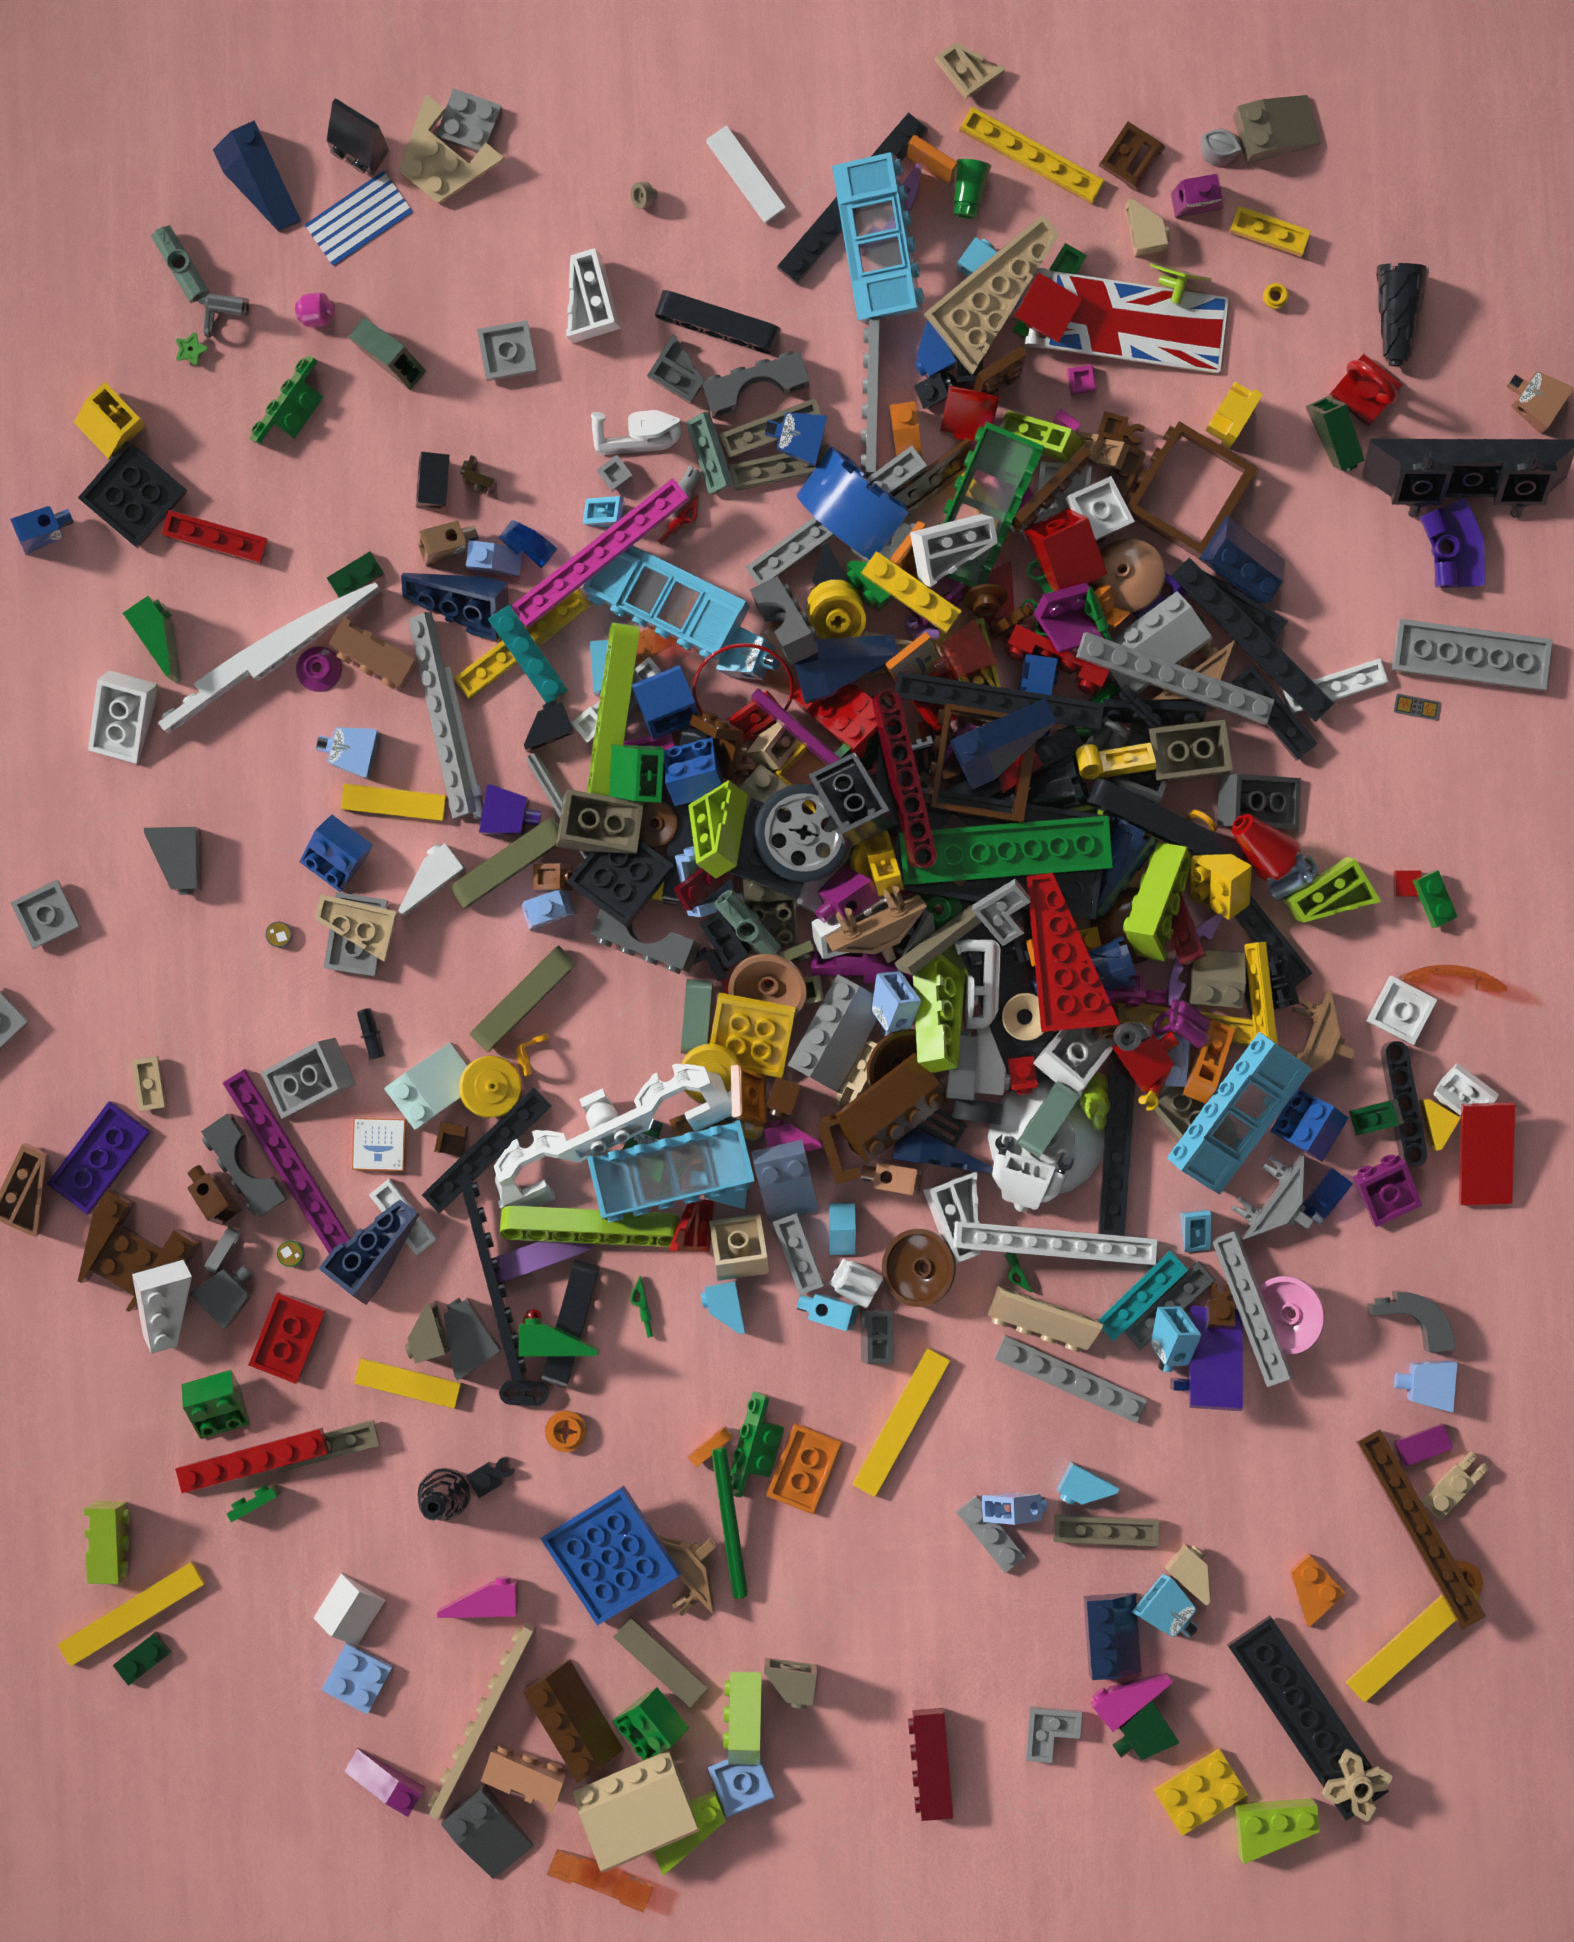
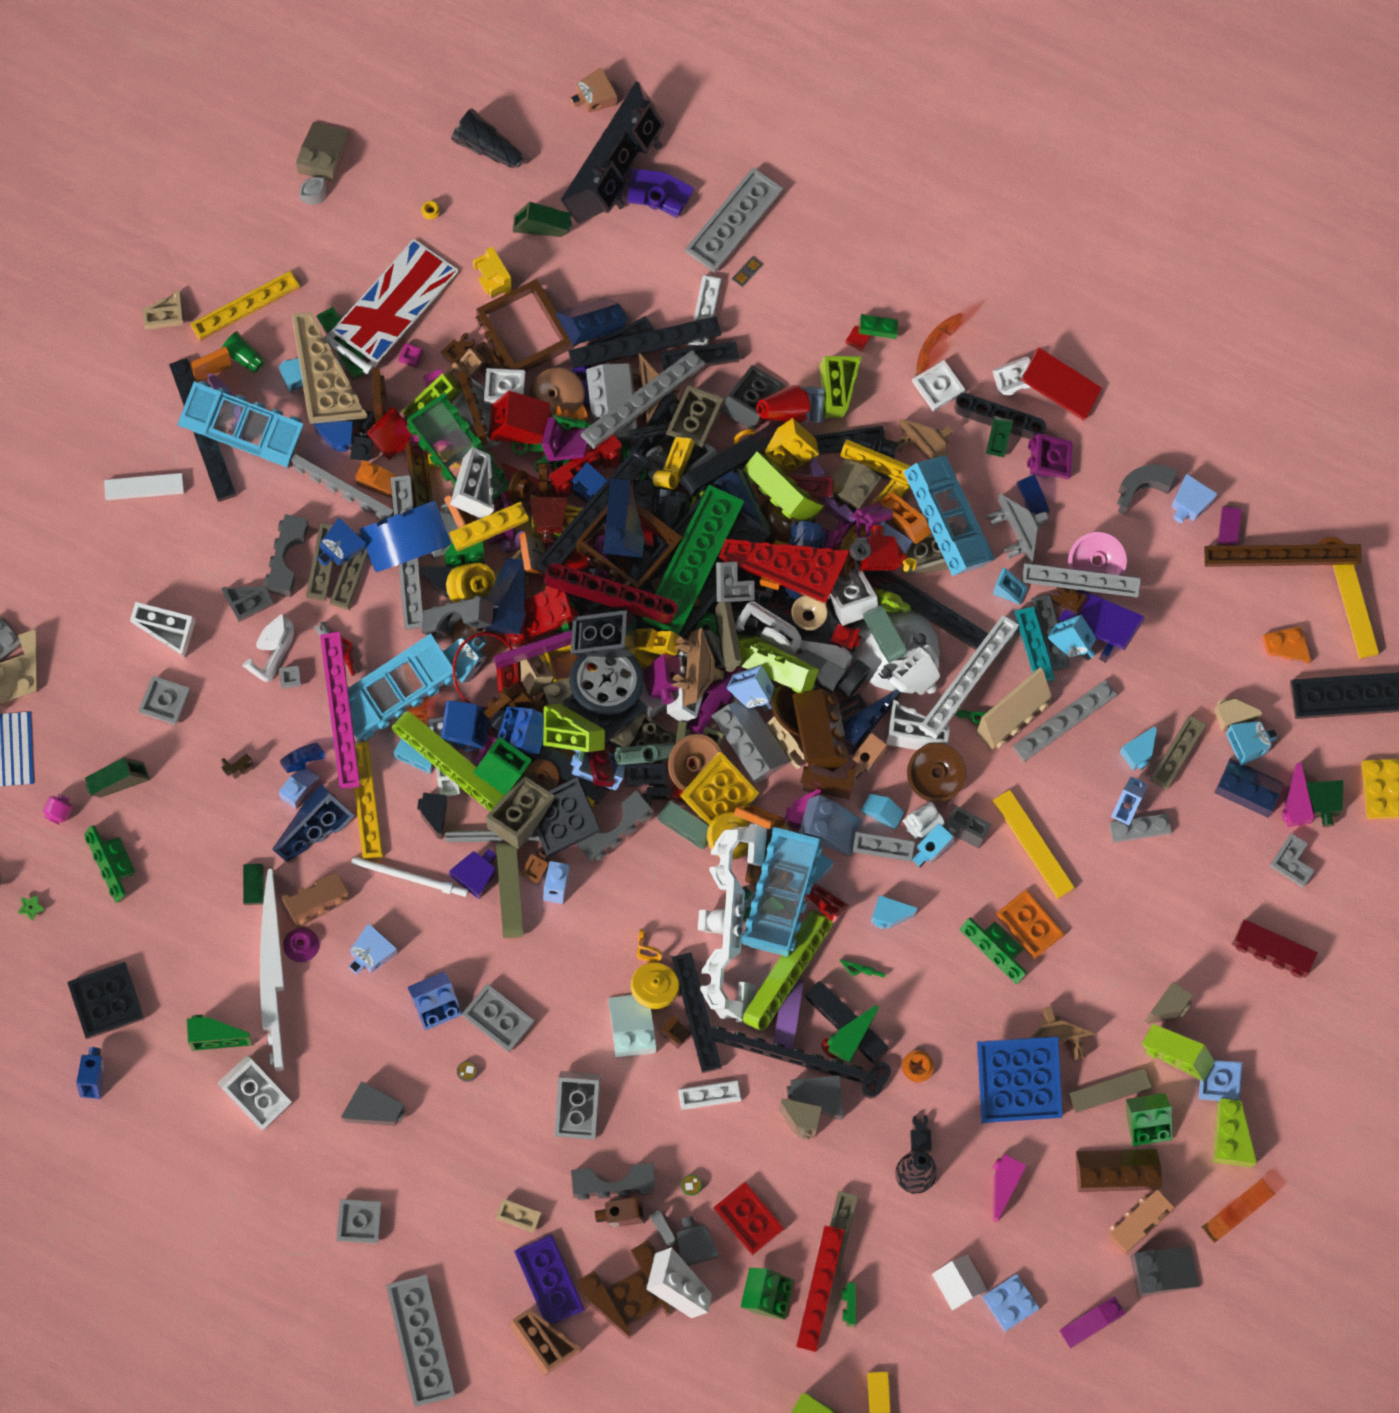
camera: 65 degrees left, 15 degrees down
(108, 420) = (46, 987): yellow slope -> none
(214, 537) = (169, 961): red plate -> none
(222, 304) = (15, 866): dark grey piece -> none
(286, 1160) = (628, 1152): magenta tile -> none
(360, 923) = (492, 1008): tan wing -> none
(367, 1258) = (724, 1132): dark blue wedge -> none
(370, 1034) = (571, 1046): black axle -> none
(379, 1144) = (650, 1083): white tile -> none
(393, 802) = (422, 944): yellow tile -> none
(407, 1383) = (825, 1155): yellow tile -> none
(432, 480) = (220, 797): black hinge -> none
(434, 873) = (487, 942): white slope -> none
(436, 547) = (268, 810): medium nougat torso -> none
(442, 715) = (383, 878): light grey plate -> none
(475, 1729) = (1089, 1239): tan plate -> none
(522, 999) = (607, 931): olive beam -> none
(527, 654) = (378, 797): teal plate -> none
(603, 511) = (312, 697): medium azure slope -> none
(635, 1811) = (1202, 1156): tan slope -> none
(643, 194) = (116, 557): dark tan tile -> none
(704, 1451) = (981, 975): orange beam -> none
(709, 453) = (314, 609): sand green plate -> none
(717, 322) = (230, 556): black beam -> none
(729, 1523) = (1040, 989): green axle -> none
(739, 1247) = (857, 881): tan slope -> none
(783, 1097) = (773, 795): reddish brown brick -> none
(1048, 307) = (354, 345): red piece -> none
(1125, 150) = (280, 249): reddish brown plate -> none
(1146, 229) = (338, 262): tan slope -> none
(1177, 284) = (387, 261): lime shield -> none
(1200, 196) = (337, 215): magenta torso -> none
(1269, 231) = (386, 190): yellow plate -> none
(1309, 1124) = (981, 480): blue slope -> none
(1366, 389) = (524, 187): red tile -> none
(1438, 1123) = (1025, 402): yellow slope -> none
(1453, 1486) = (1266, 522): tan hinge -> none

